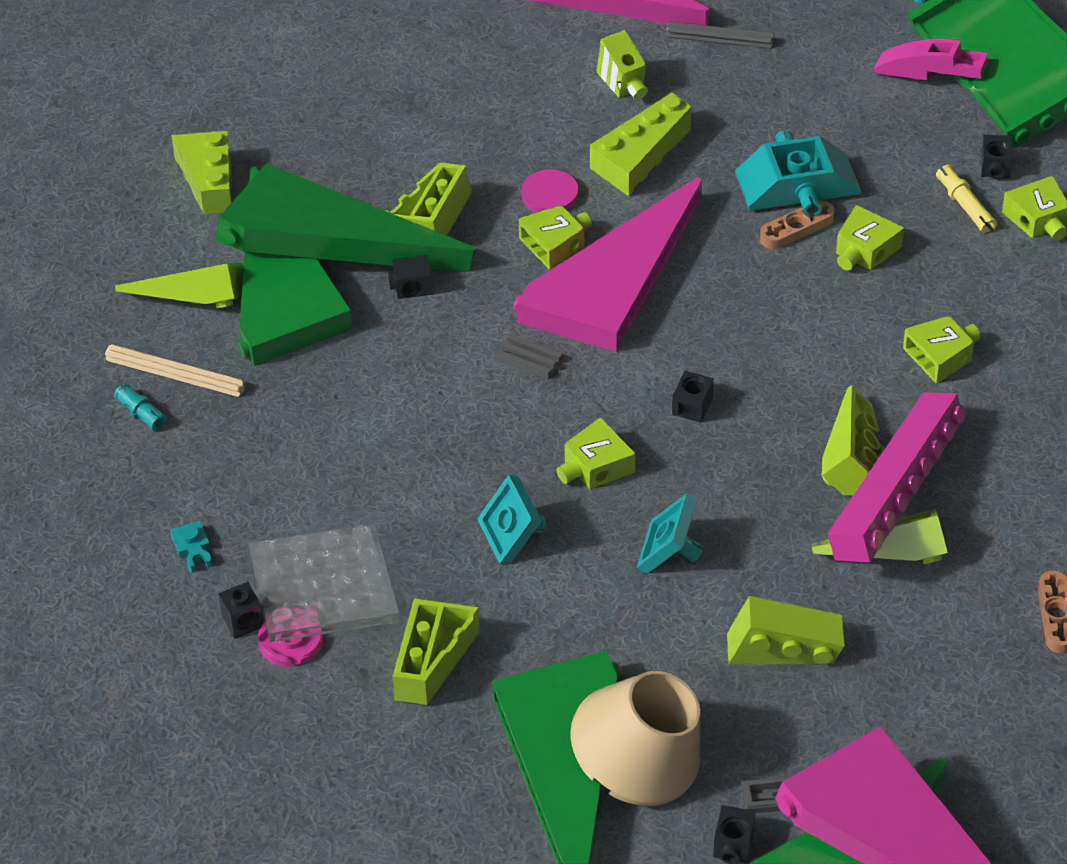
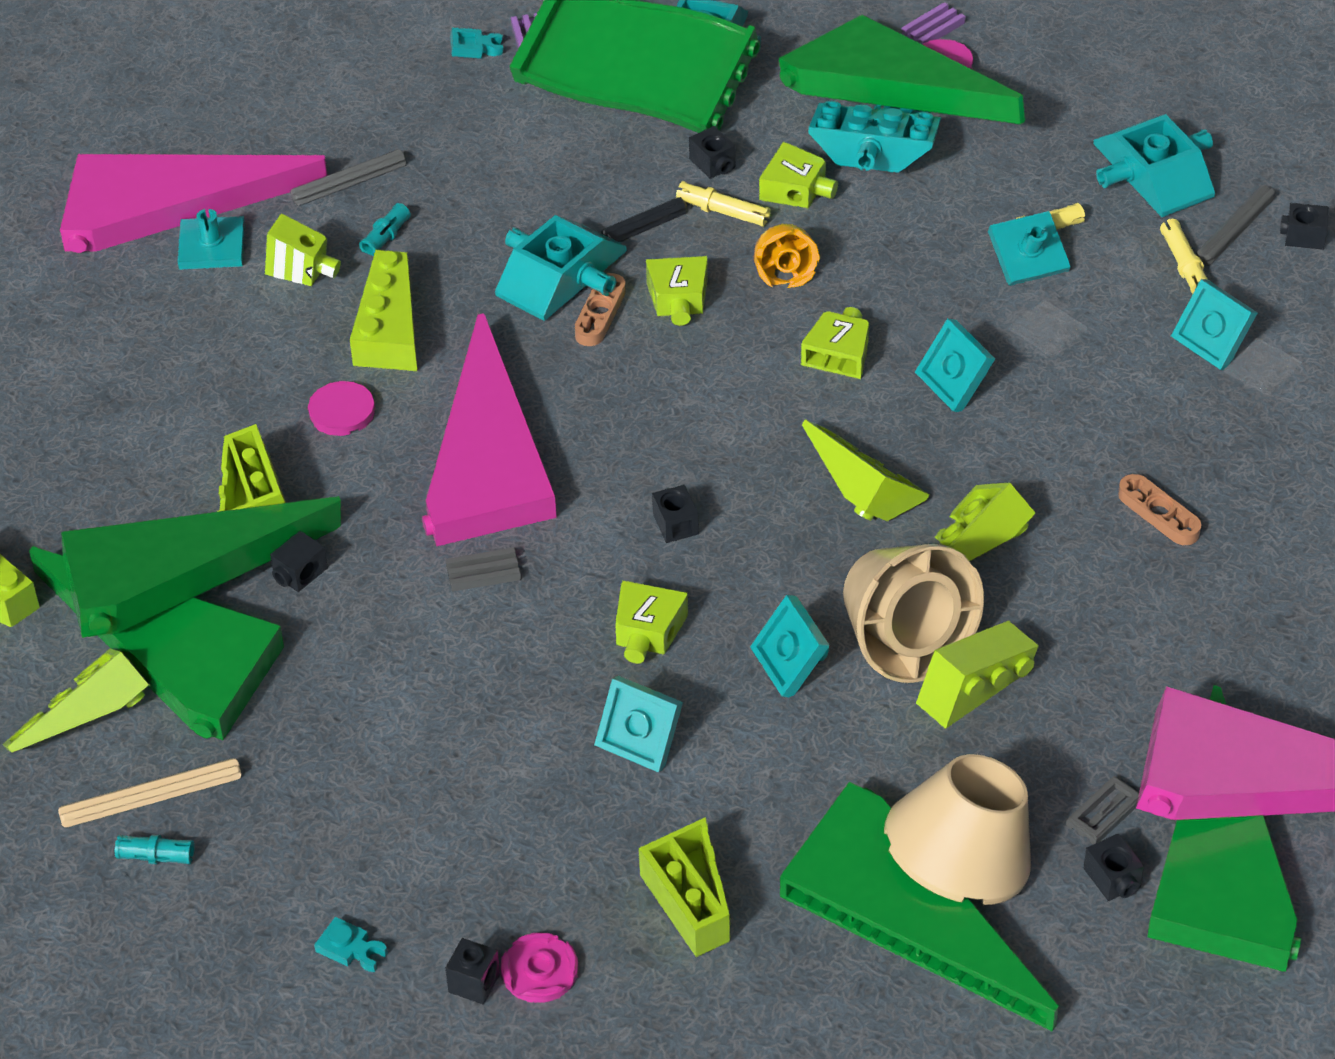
camera: 40 degrees left, 0 degrees up
(323, 583) = (519, 894): clear plate -> none
(554, 234) = (391, 444): lime torso -> none
(581, 29) = (211, 241): none -> teal tile
(706, 85) = (395, 218): none -> teal pin
(737, 572) = (937, 606): none -> tan cone
(895, 477) = (934, 472): dark pink brick -> none
(897, 180) = (646, 220): none -> black axle
(922, 57) = (564, 98): dark pink slope -> none
(965, 255) = (785, 247): none -> light orange cylinder
(1006, 412) = (954, 365): none -> teal tile

